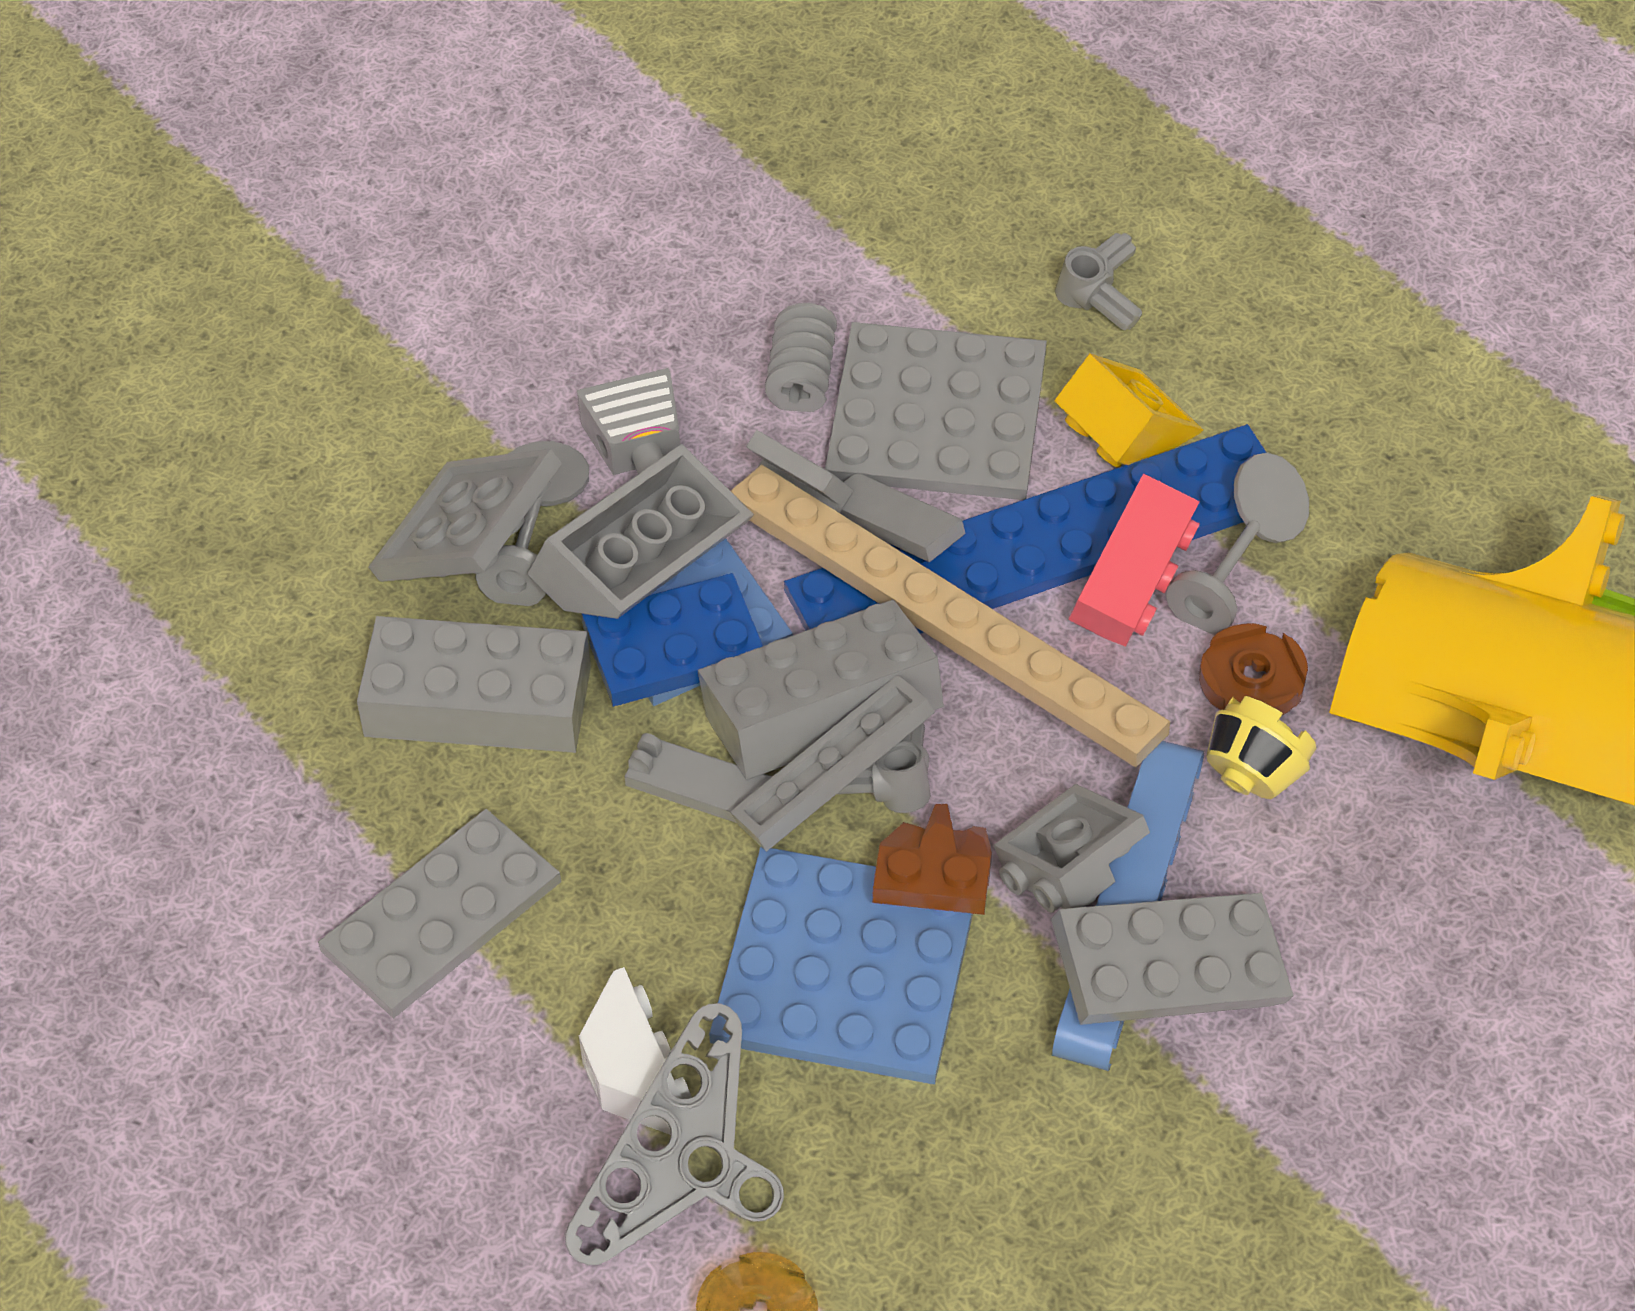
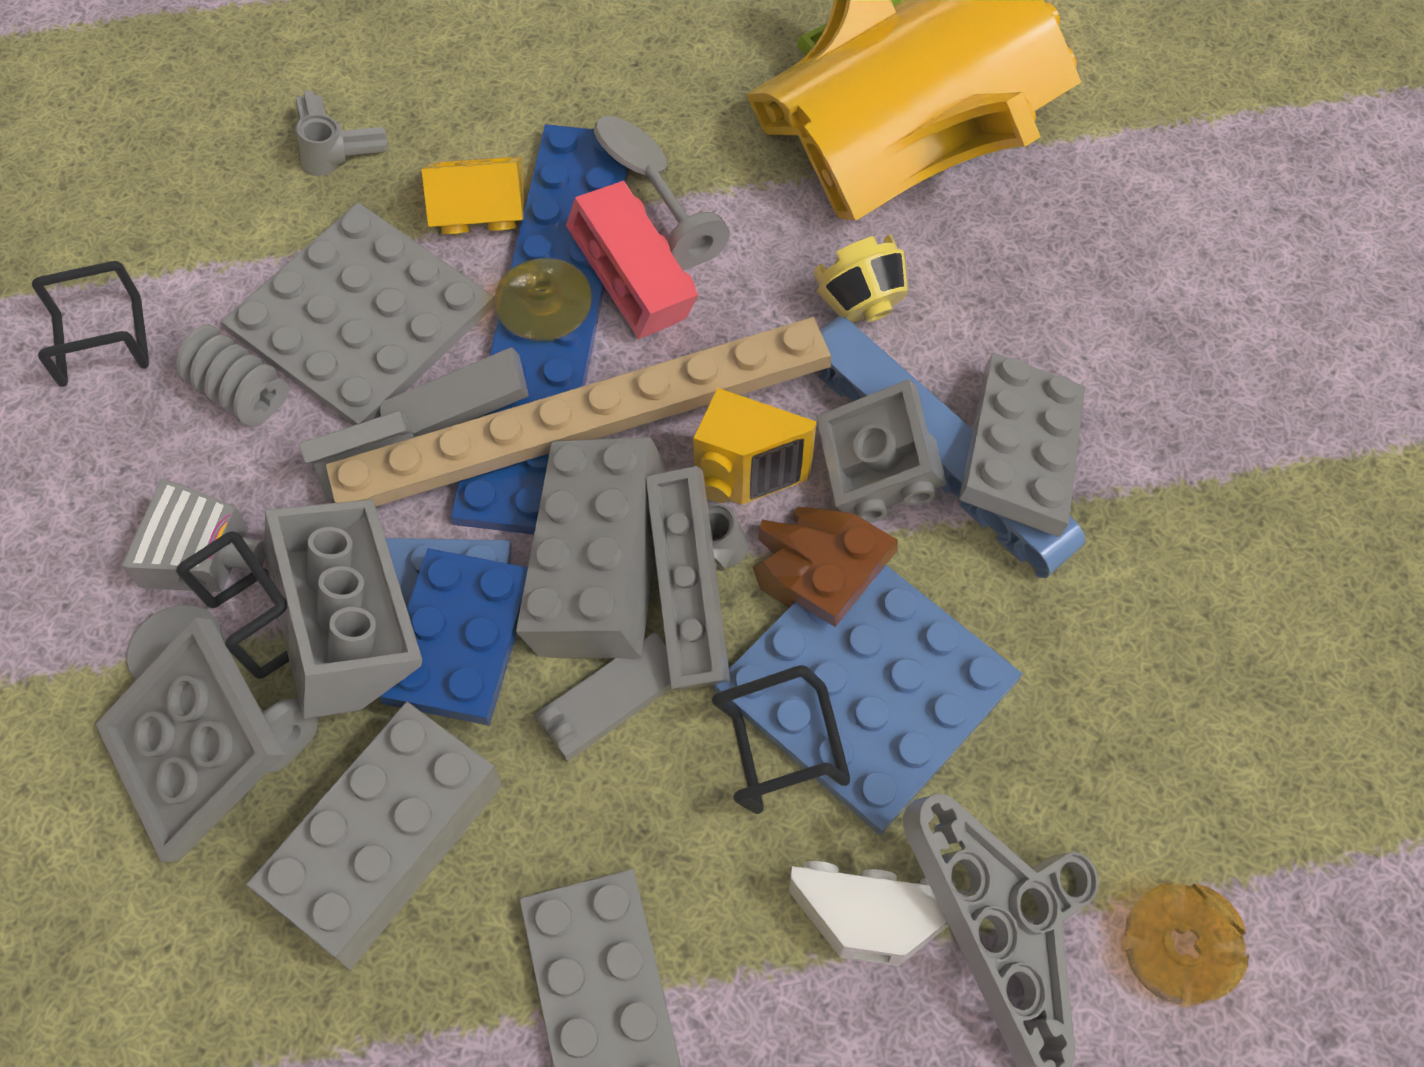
camera: 60 degrees left, 10 degrees up
(610, 479) = (258, 574): none -> black piece
(738, 846) = (751, 796): none -> black piece
(747, 243) = (138, 350): none -> black piece
(991, 744) = (751, 448): none -> yellow slope
(1045, 523) = (543, 313): none -> clear yellow dish
(1249, 645) = (772, 271): dark orange plate -> none

